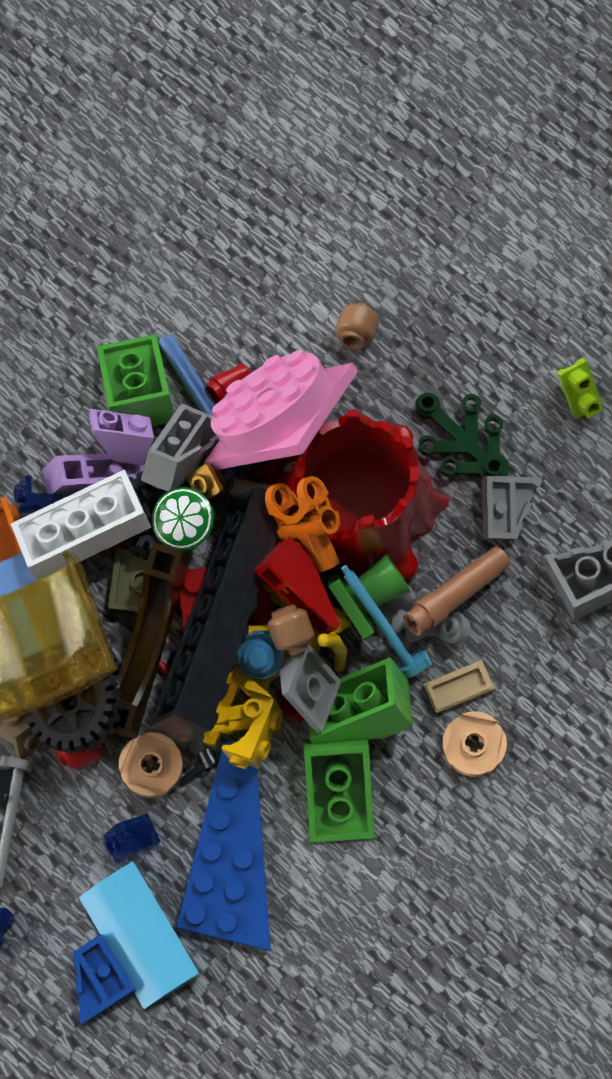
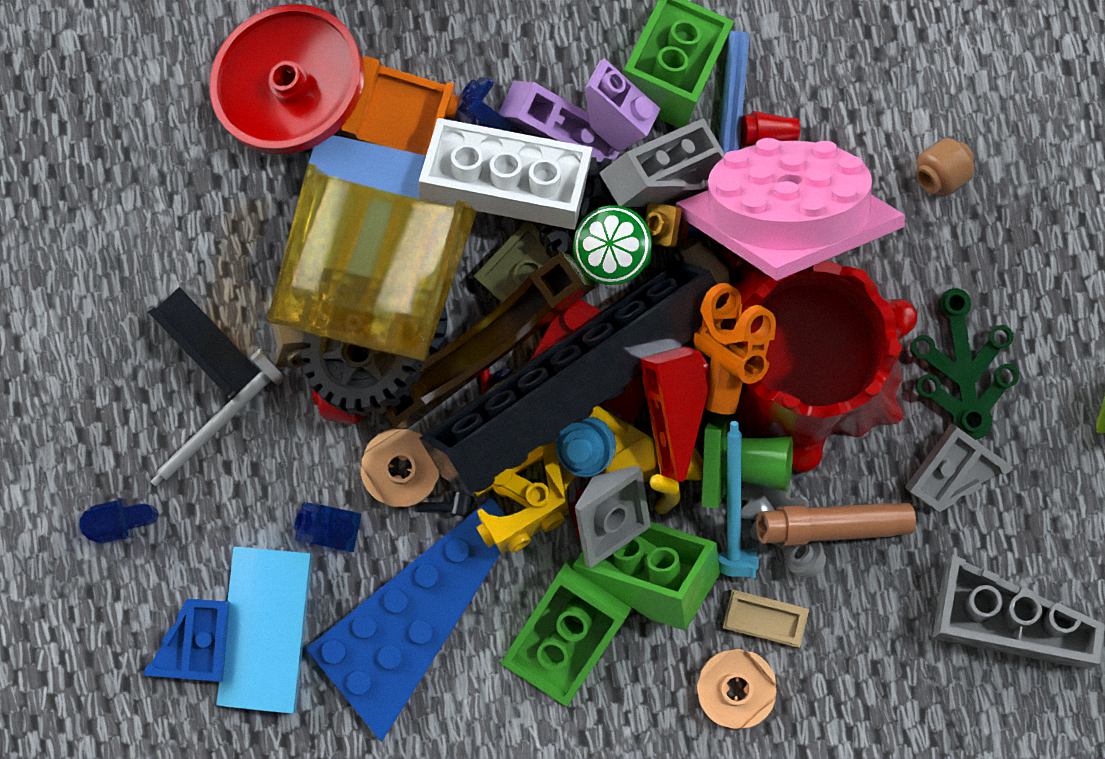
camera: 30 degrees right, 10 degrees up
(290, 629) = (633, 446): medium nougat head -> none

